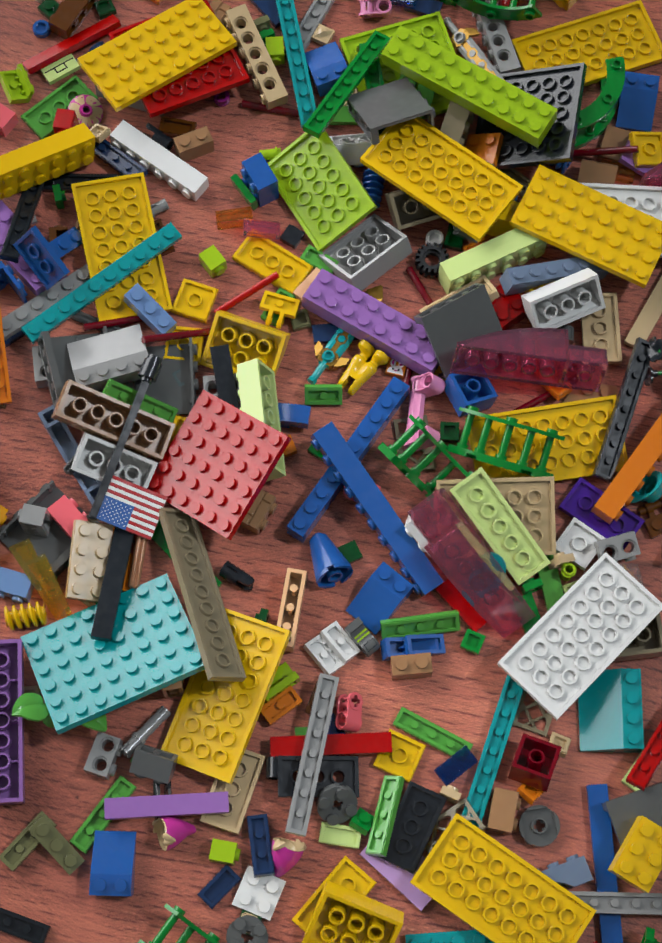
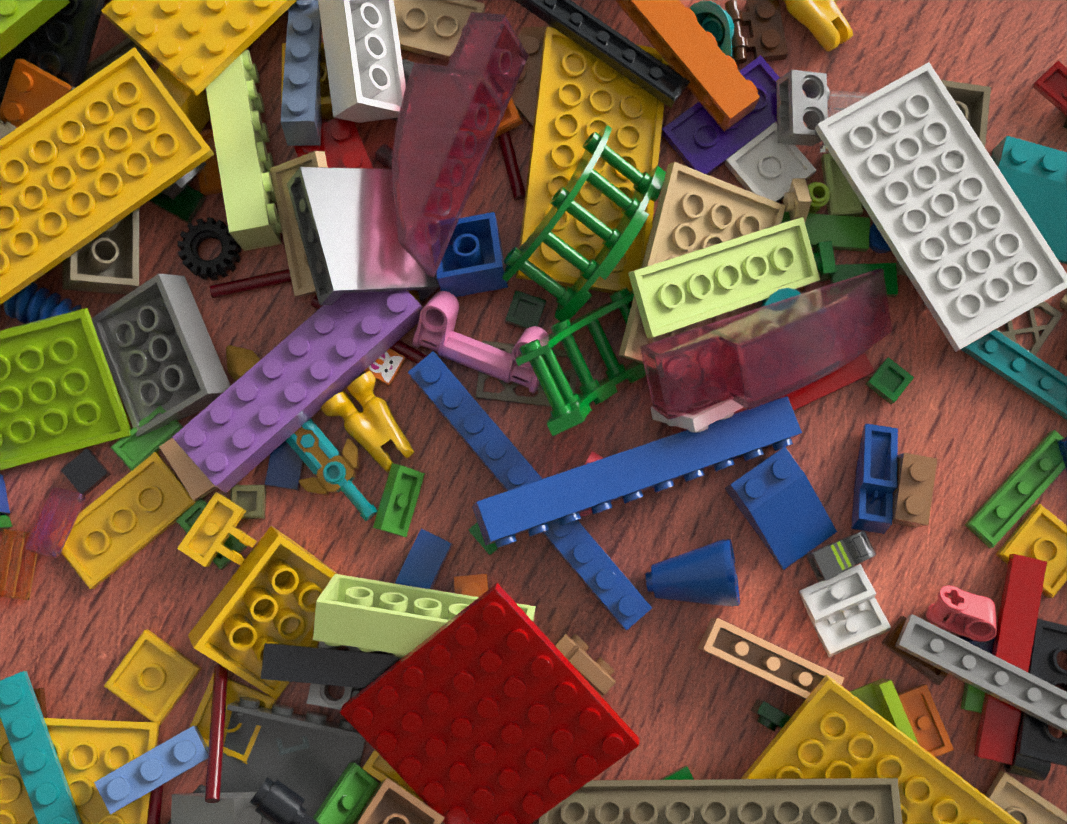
camera: 75 degrees left, 10 degrees up
(213, 261) = (89, 625): lime brick -> none
(237, 576) = (691, 729): black hinge -> none
(247, 293) = (170, 580): red bar -> none
(351, 552) = (688, 534): dark green tile -> none
(421, 624) = (843, 456): bright green tile -> none
(434, 236) = (168, 232): white tile -> none

